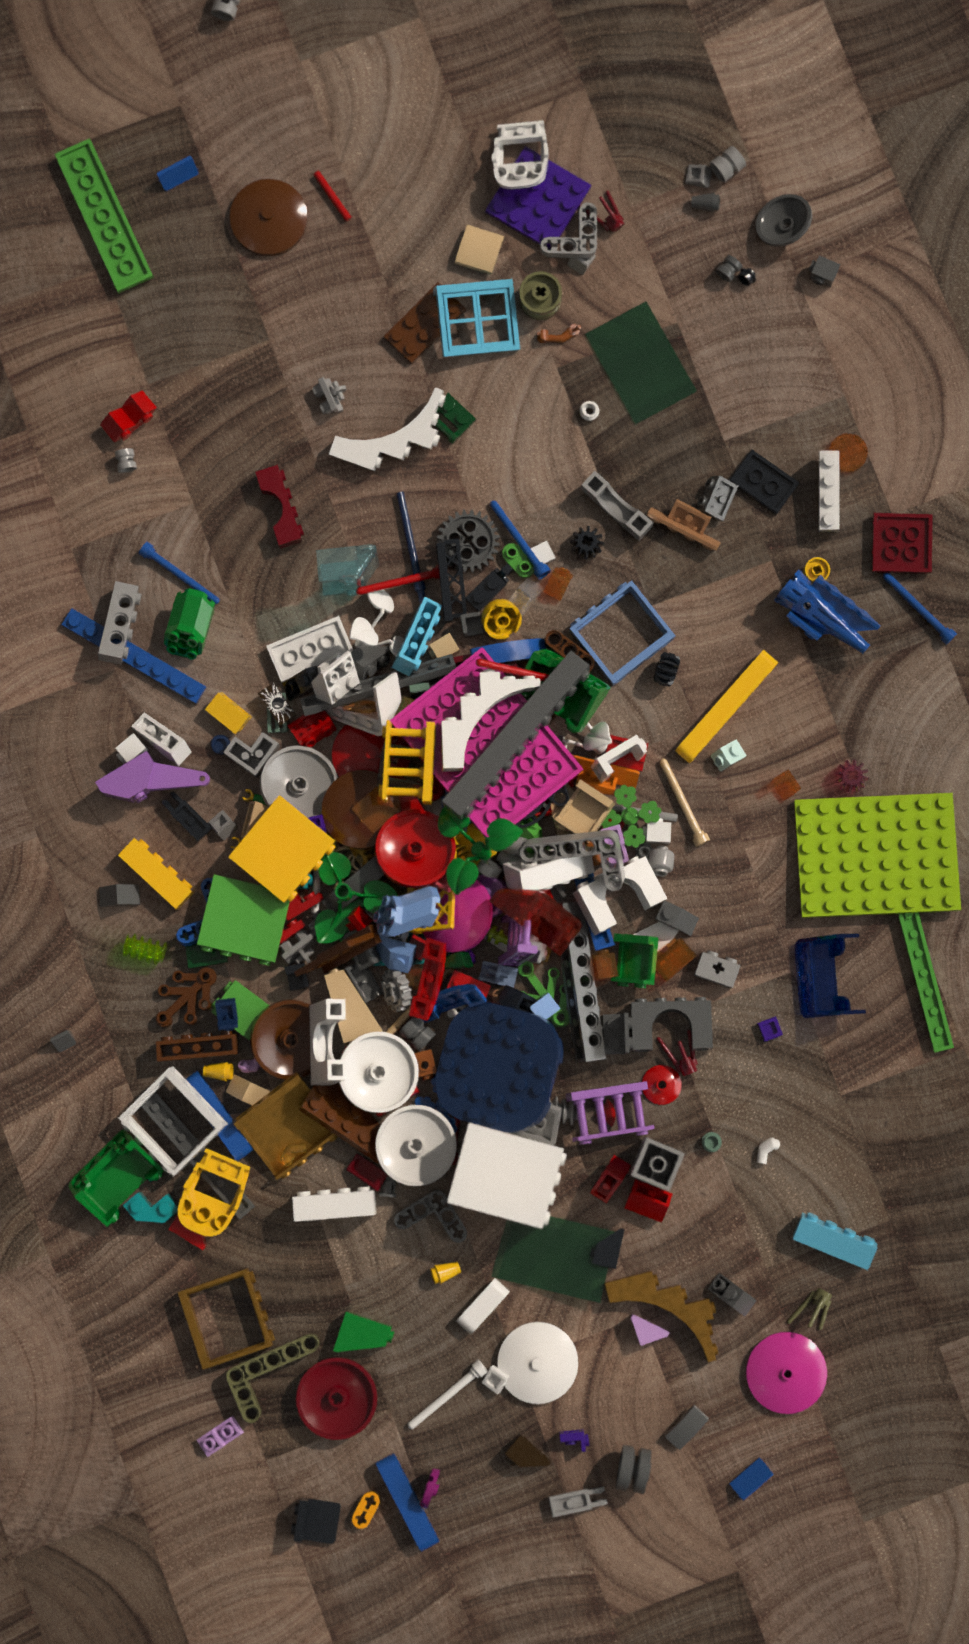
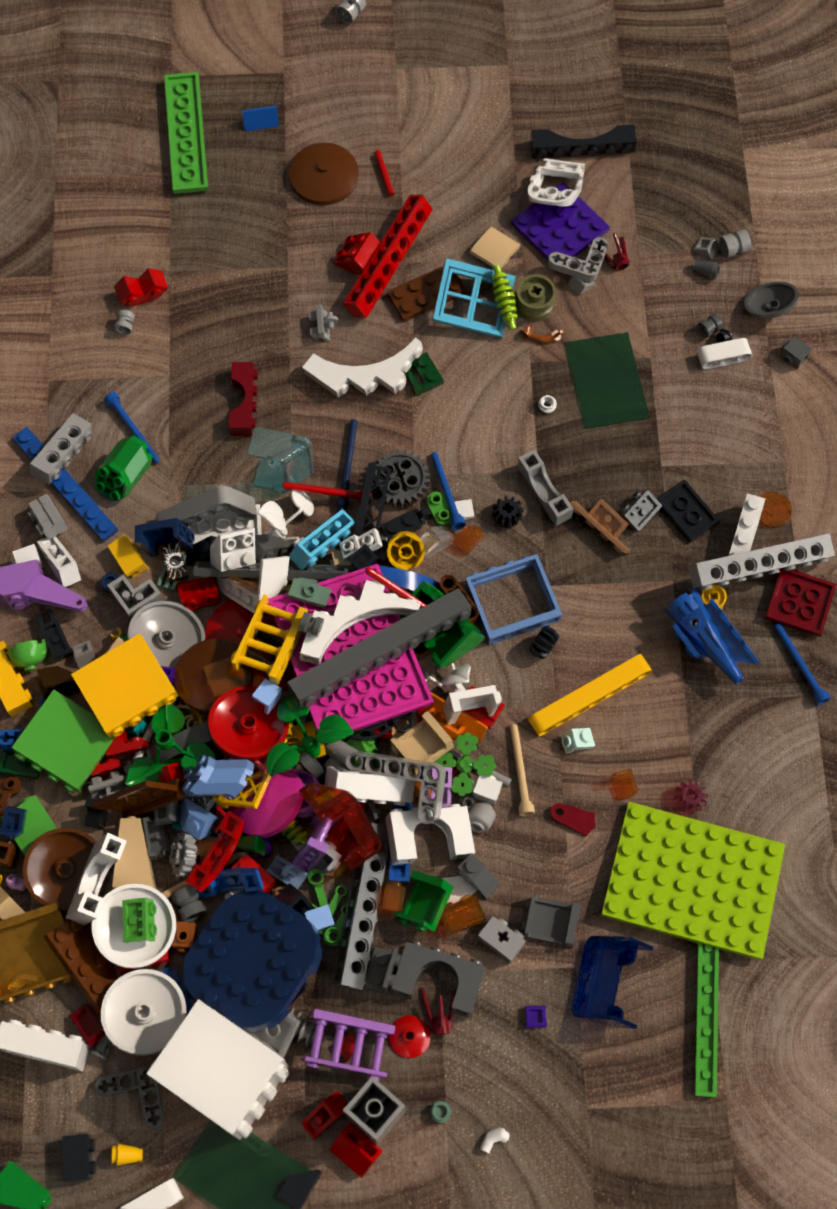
camera: 15 degrees right, 15 degrees down
(132, 698) = (47, 517): none -> light grey brick
(170, 844) = (27, 654): none -> bright green cylinder
(210, 862) = (56, 679): none -> dark brown slope
(243, 688) = (162, 532): none -> dark blue panel
(288, 642) = (210, 504): none -> light grey beam
(339, 302) = (356, 252): none -> red slope
(372, 297) = (388, 256): none -> red brick
(382, 1067) = (139, 920): none -> bright green bracket
(403, 1288) = (78, 1157): none -> black brick
(424, 817) = (268, 695): none -> light blue panel
(428, 701) = (309, 593): none -> sand green plate
(445, 738) = (311, 624): none -> dark grey wheel
(456, 629) = (353, 543): none -> white slope
(464, 645) = (362, 558): none -> black bracket
(495, 105) = (549, 144): none -> black arch
(510, 309) = (504, 297): none -> lime piece
(748, 832) = (574, 818): none -> dark red piece
(752, 295) = (724, 353): none -> white beam
(757, 937) = (551, 921): none -> dark grey panel
(798, 552) = (701, 572): none -> light grey brick

